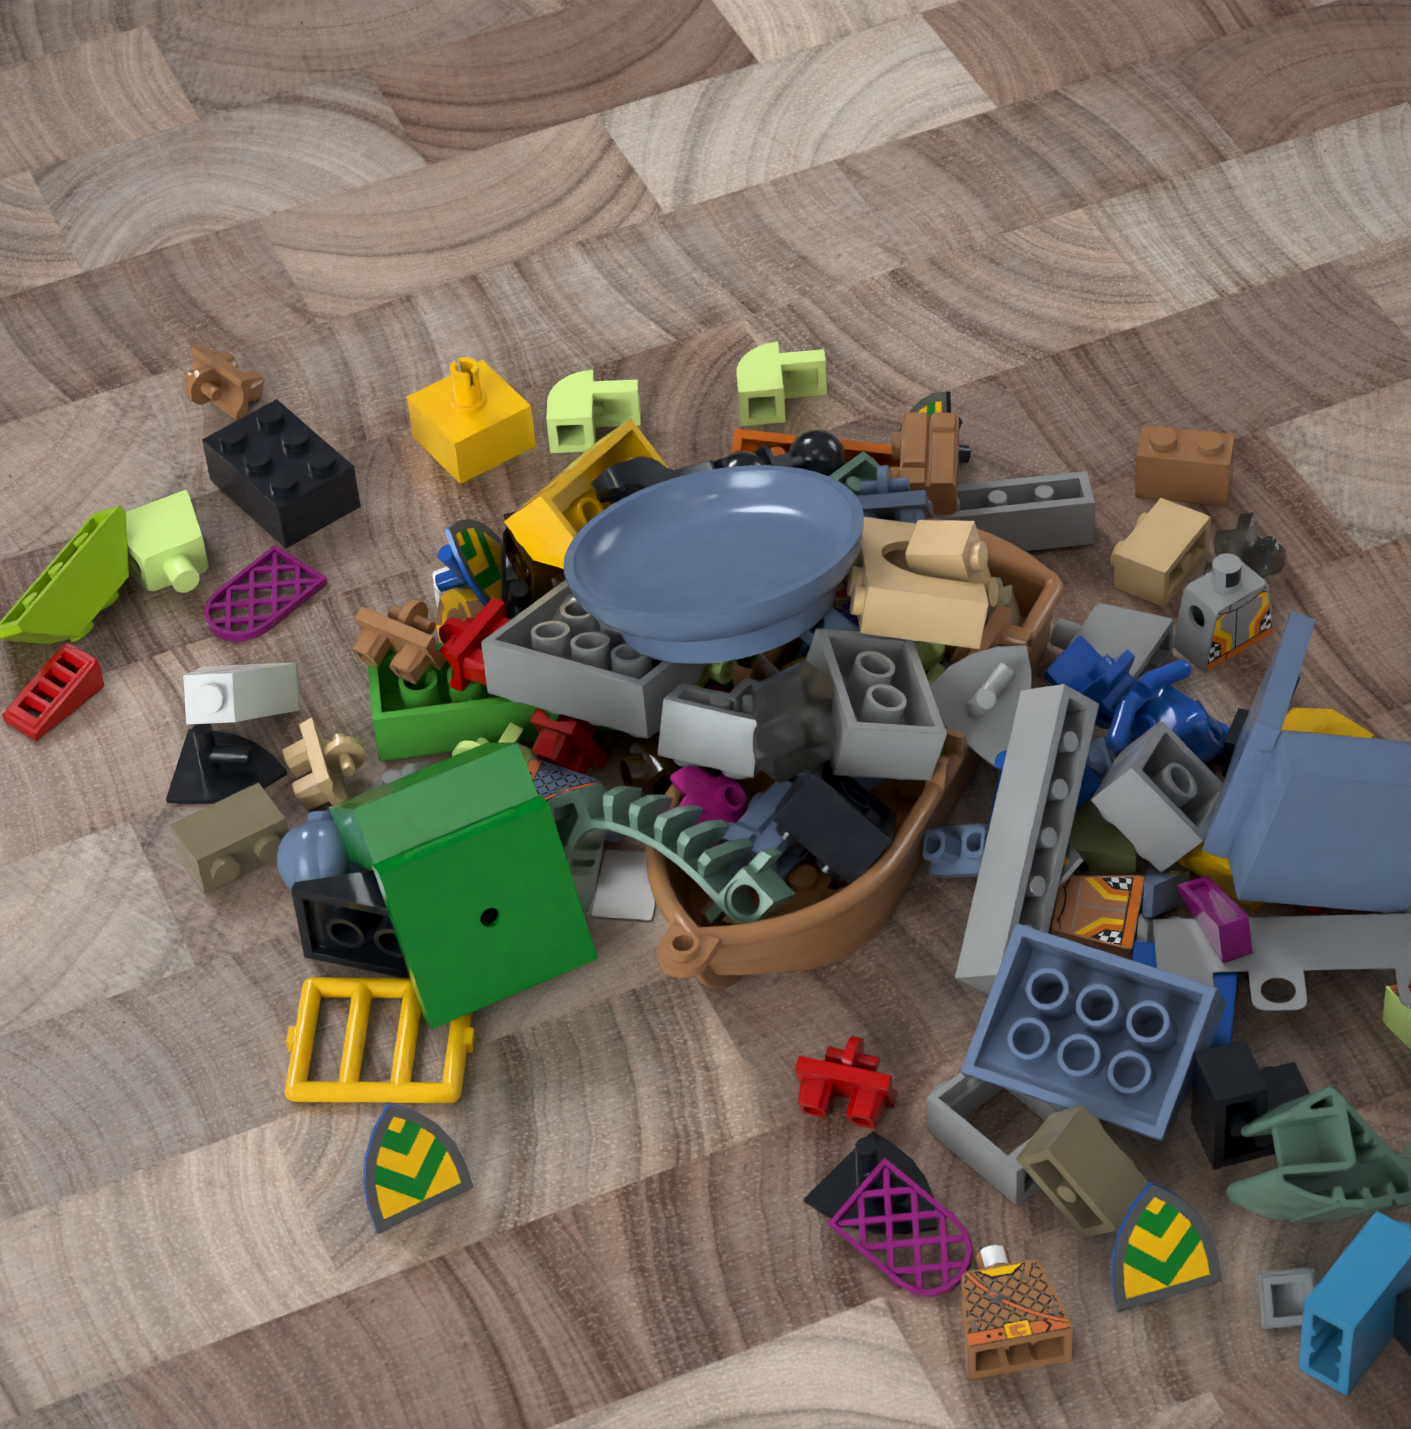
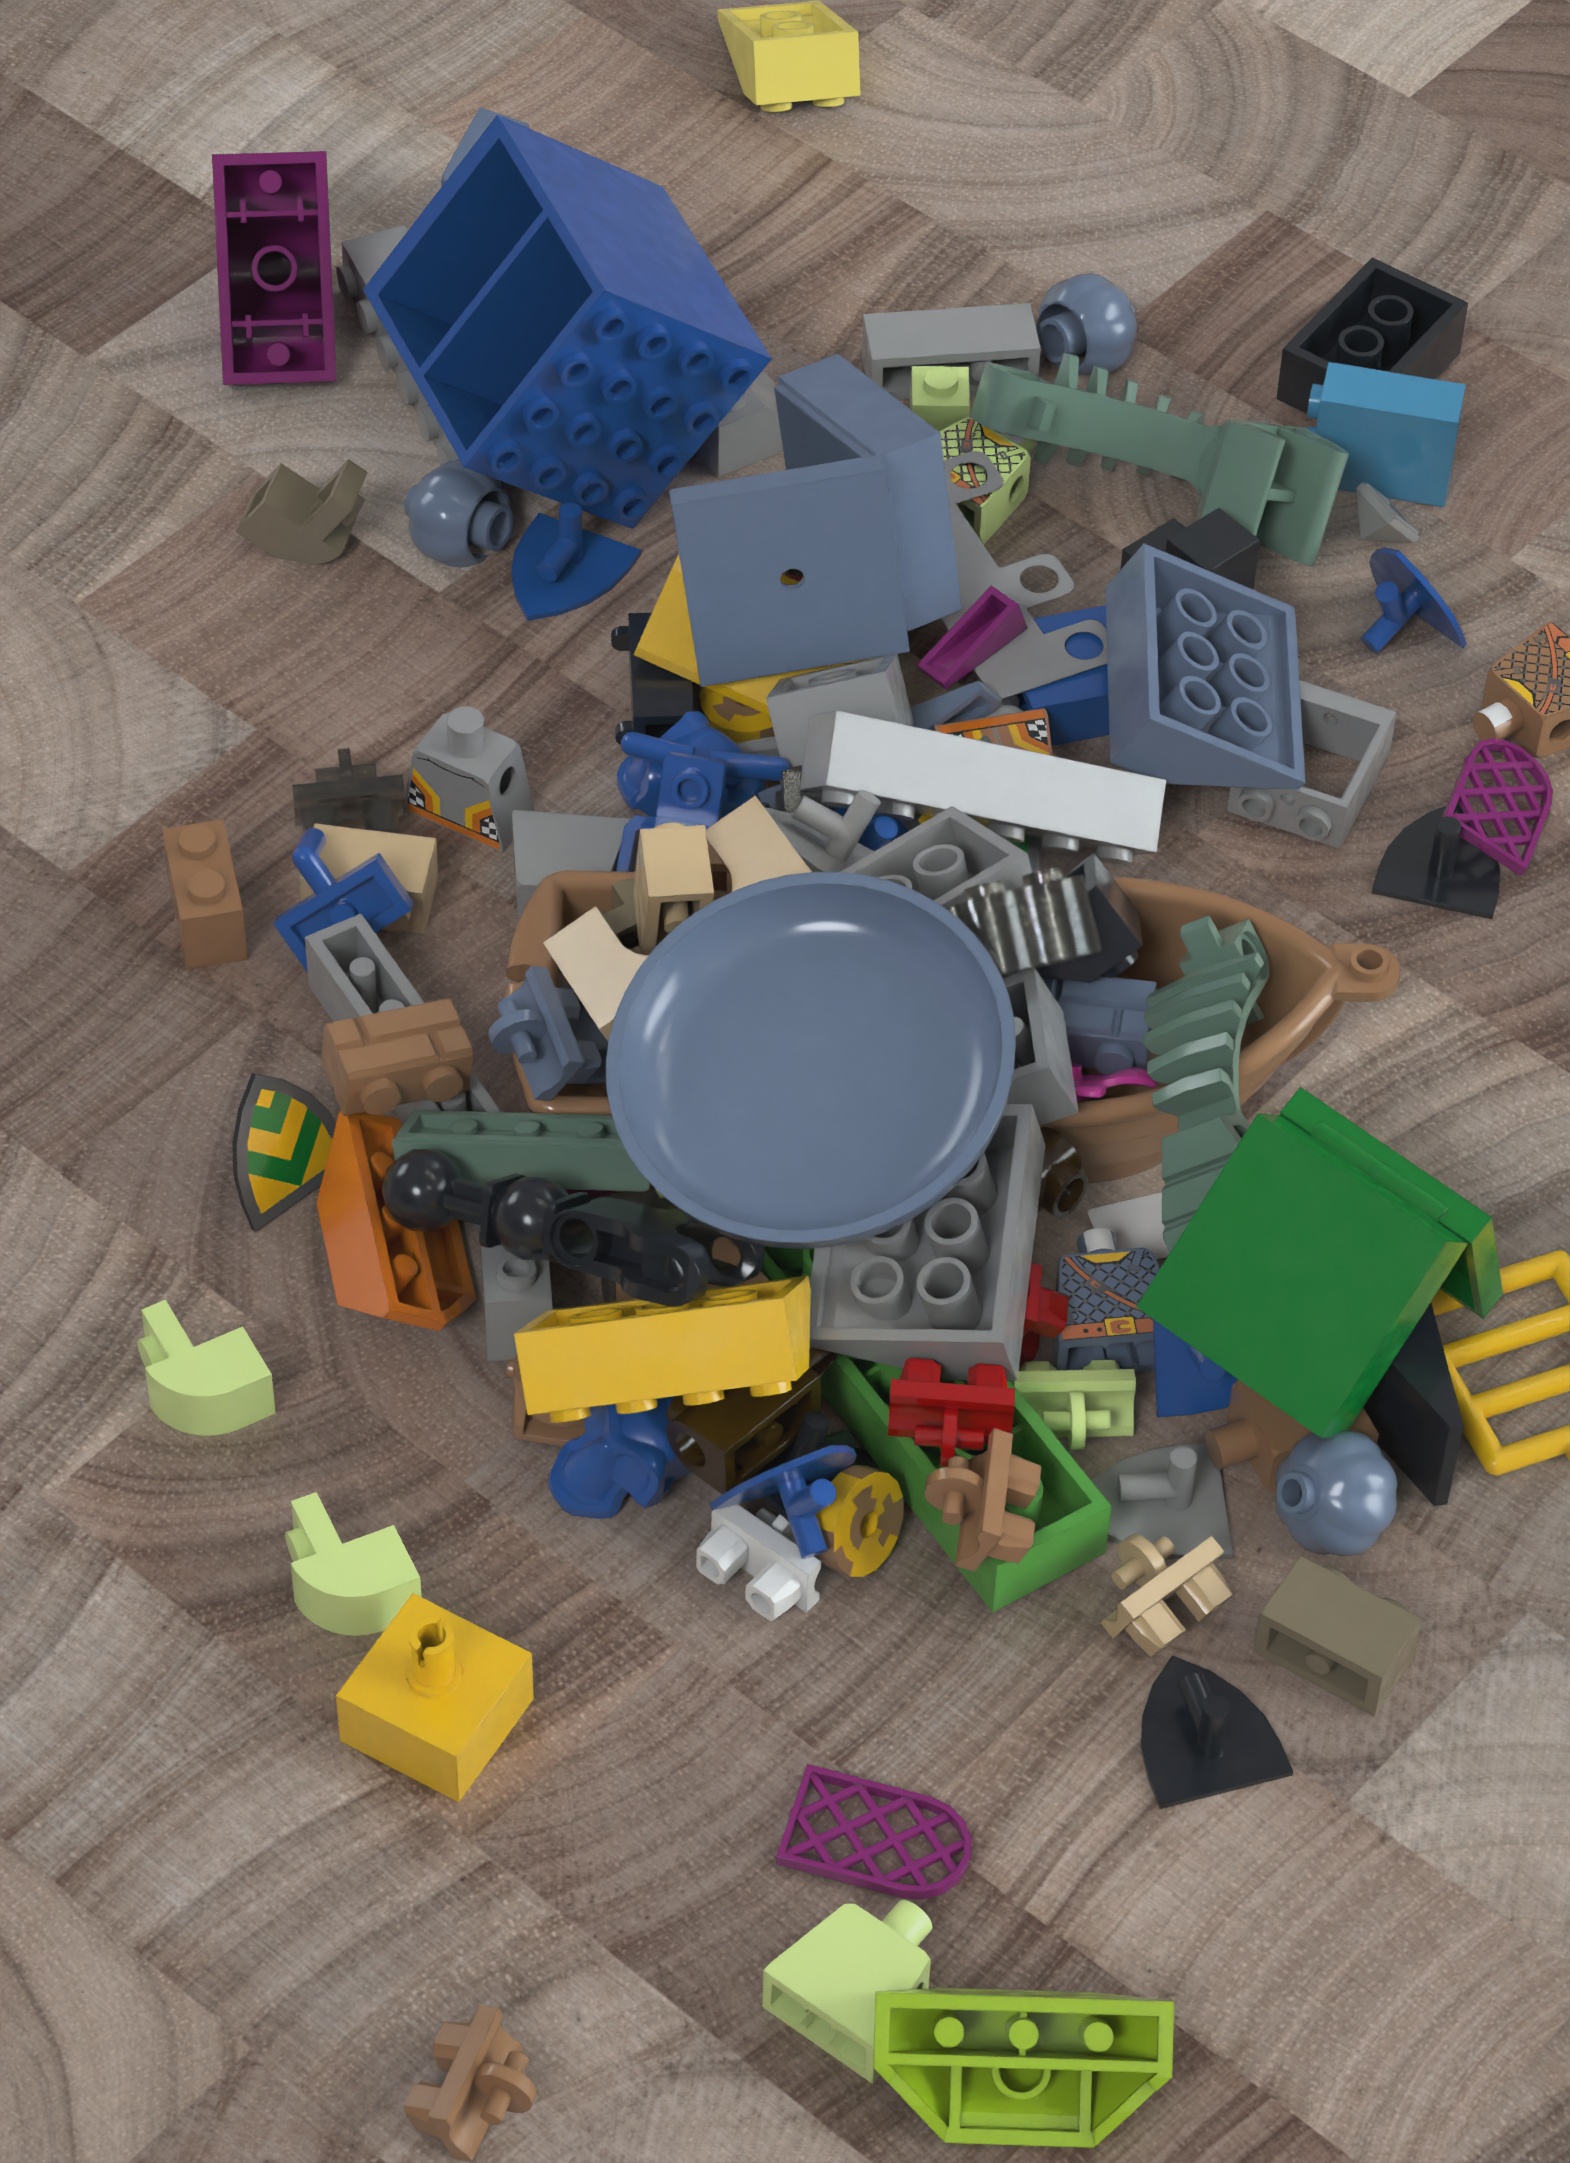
camera: 120 degrees left, 5 degrees up
(66, 667) = (1181, 1961): red slope -> none
(240, 692) = (1129, 1711): white slope -> none
(281, 473) = (646, 1892): black brick -> none
(847, 1075) = (1341, 903): red hips -> none
(1082, 1171) = (1361, 661): dark tan brick -> none
(1121, 512) = (364, 890): none -> blue plate

